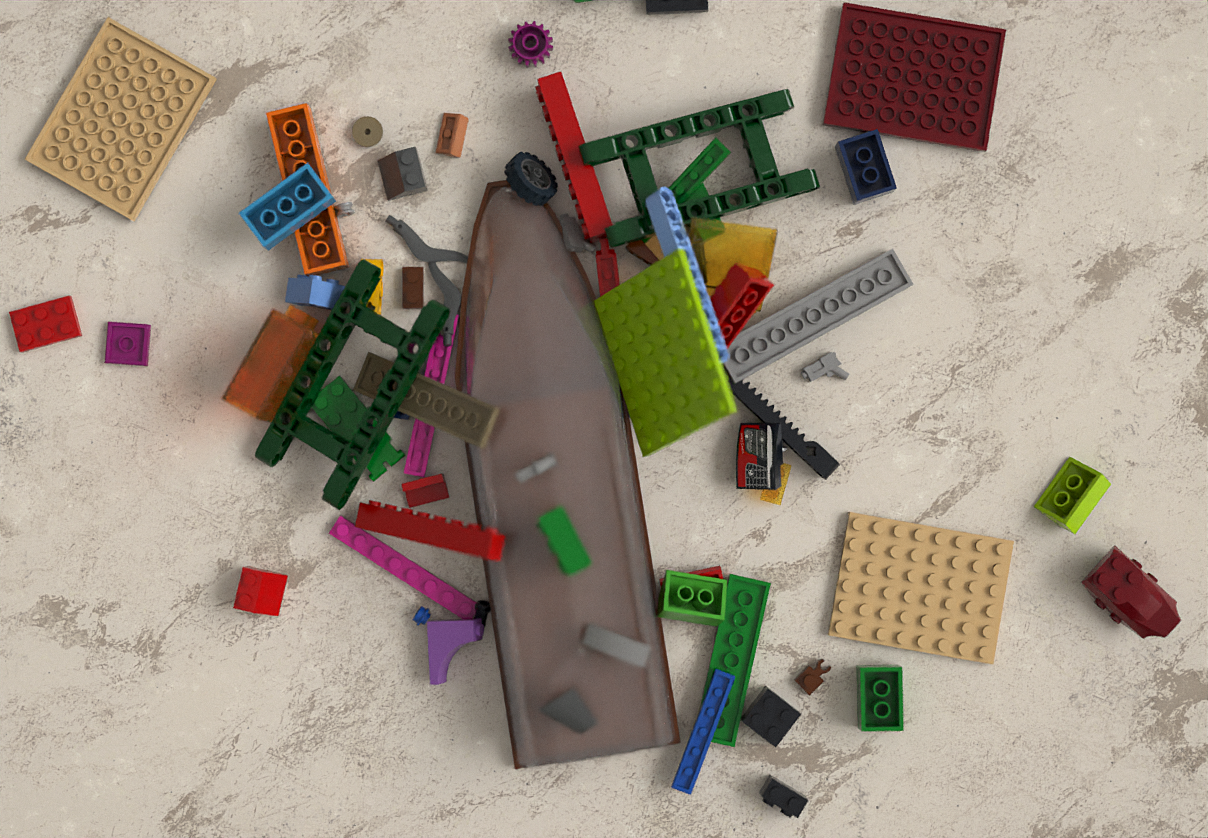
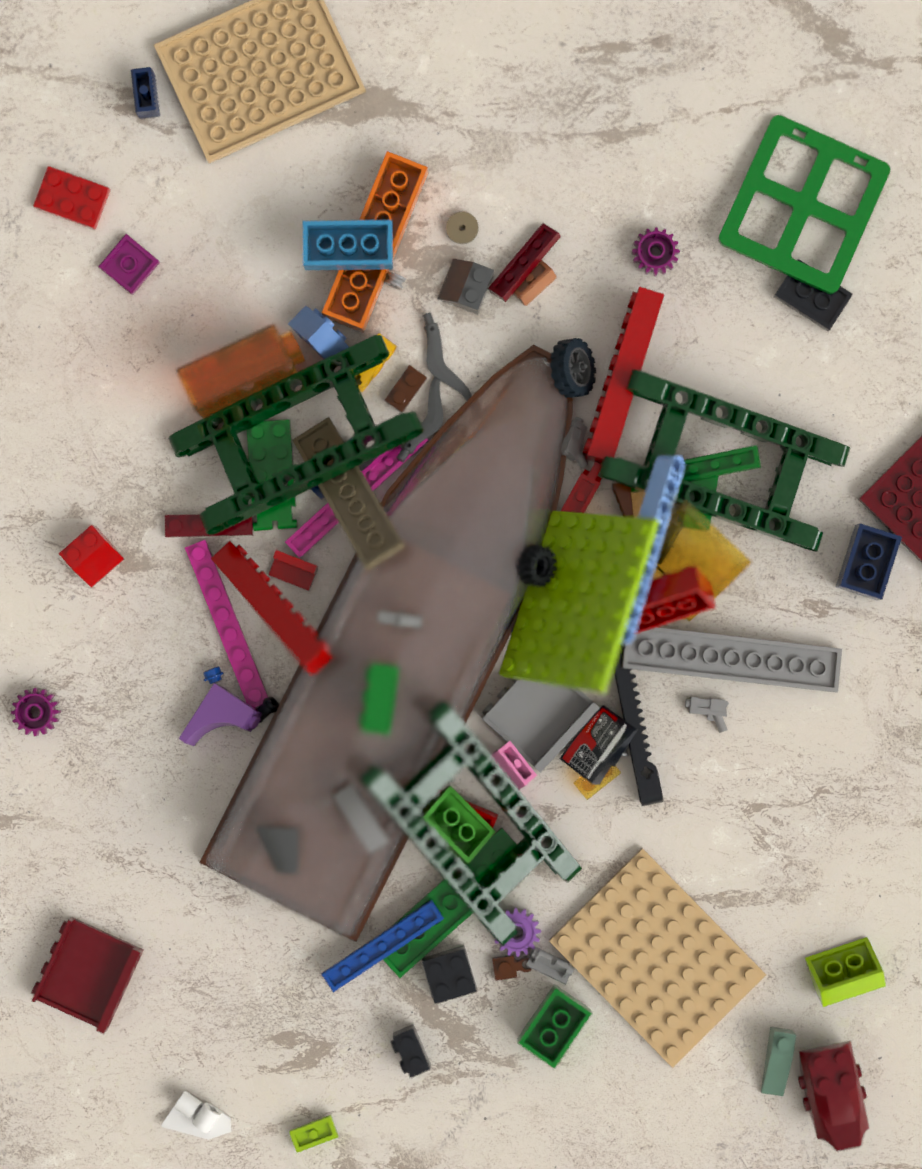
camera: 40 degrees right, 0 degrees up
(44, 201) = (145, 93): none -> dark blue brick
(293, 749) = (47, 712): none -> magenta gear
(323, 512) = (193, 527): none -> dark red plate
(434, 124) = (524, 262): none -> dark red plate
(620, 355) = (545, 565): none -> black tyre
(648, 583) = (429, 781): none -> beam
(698, 468) = (539, 718): none -> light grey panel
(703, 523) = (514, 765): none -> bright pink brick
(798, 657) = (528, 936): none -> medium lavender gear
(843, 653) = (550, 965): none -> light grey hinge
(1070, 600) = (778, 1061): none -> sand green slope

